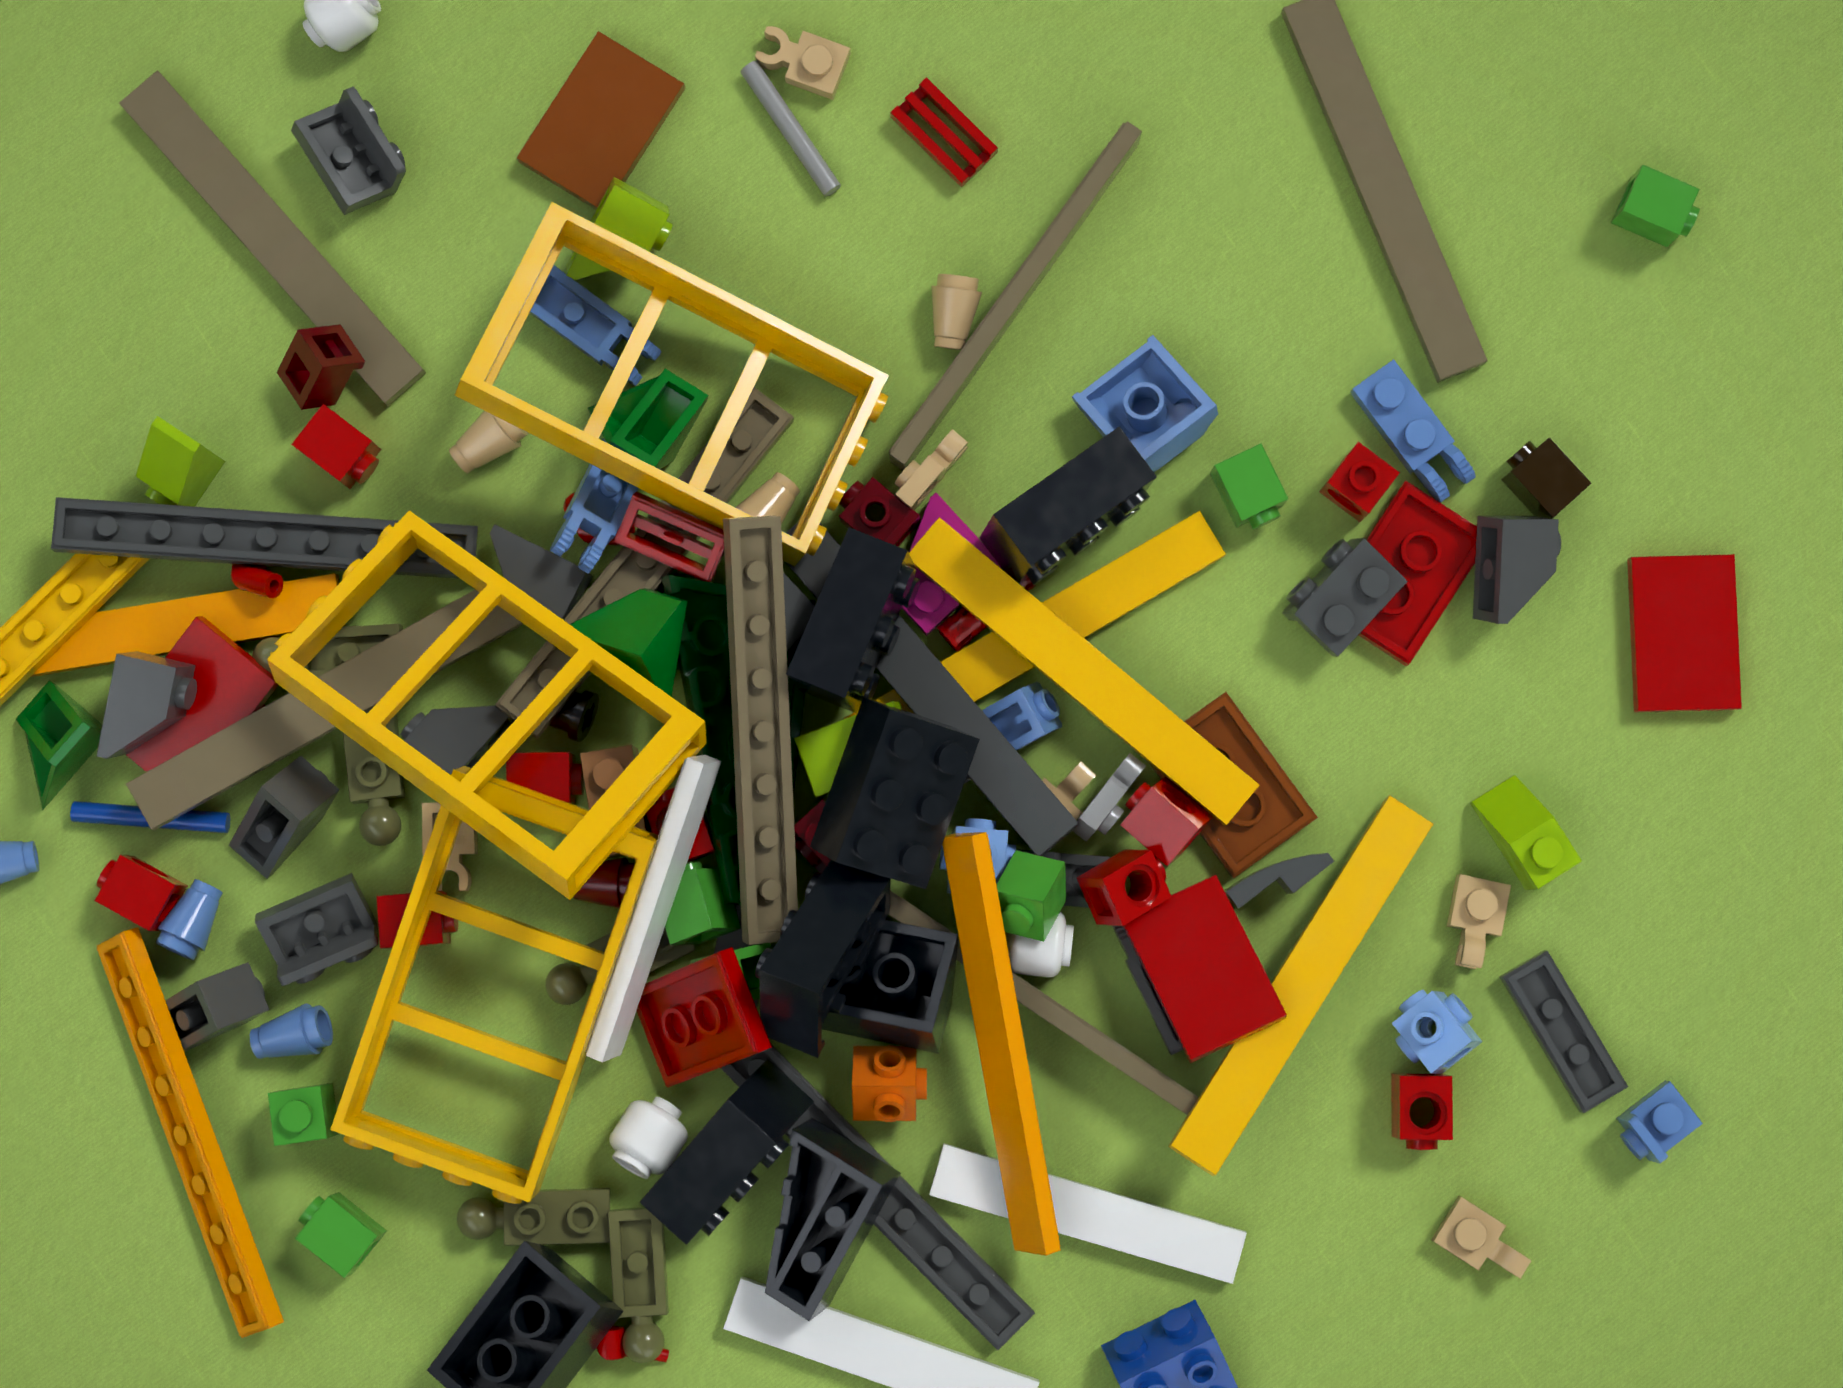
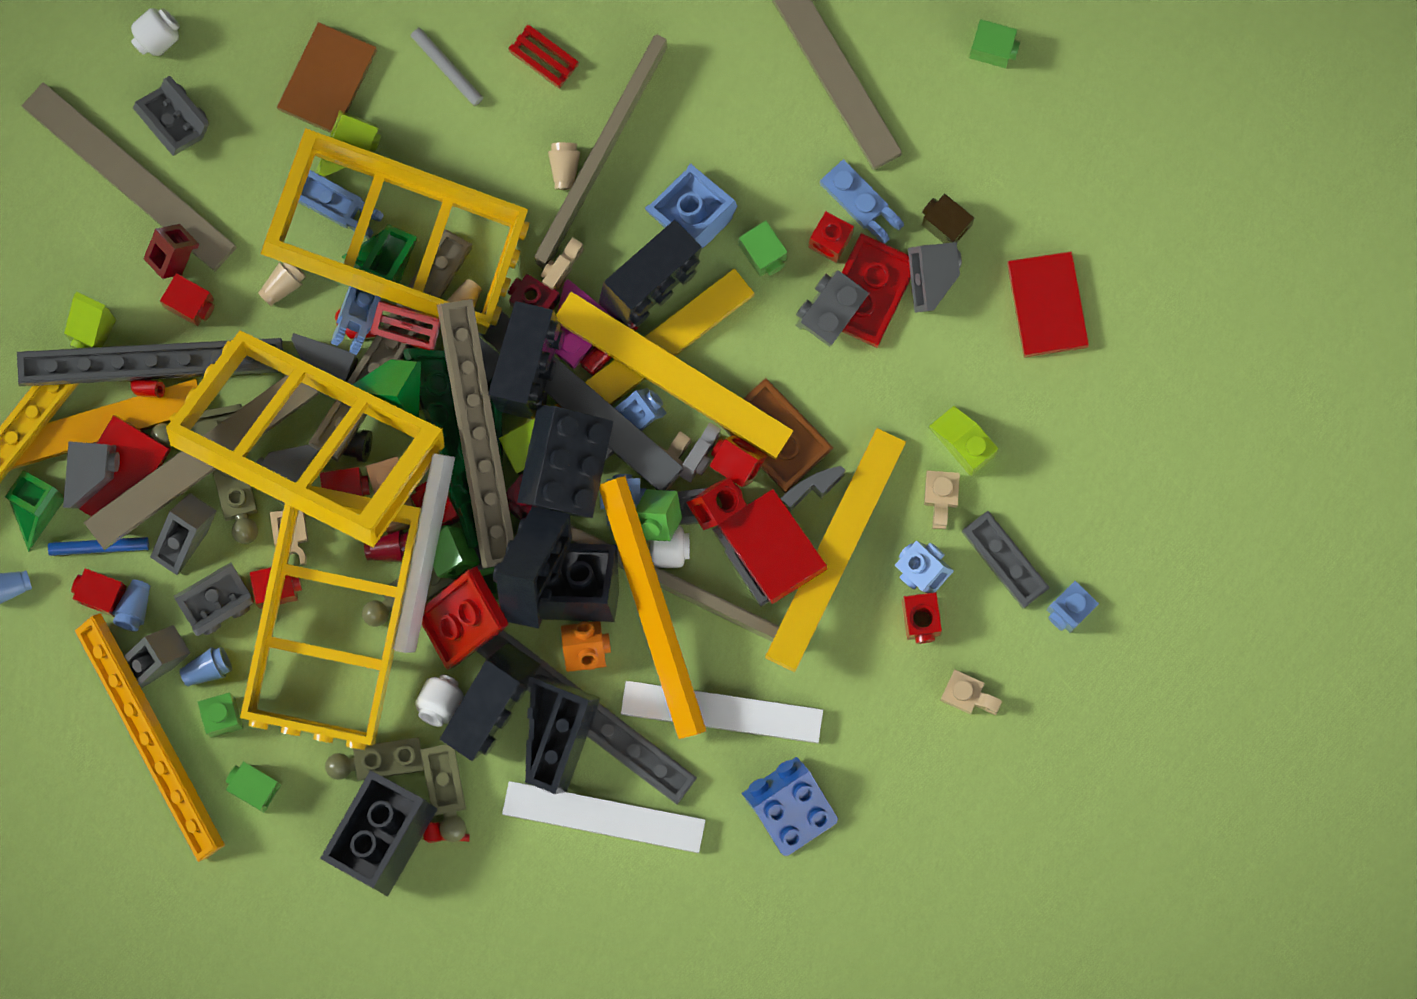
camera: 10 degrees left, 5 degrees down
(811, 64) = (454, 25): tan plate -> none

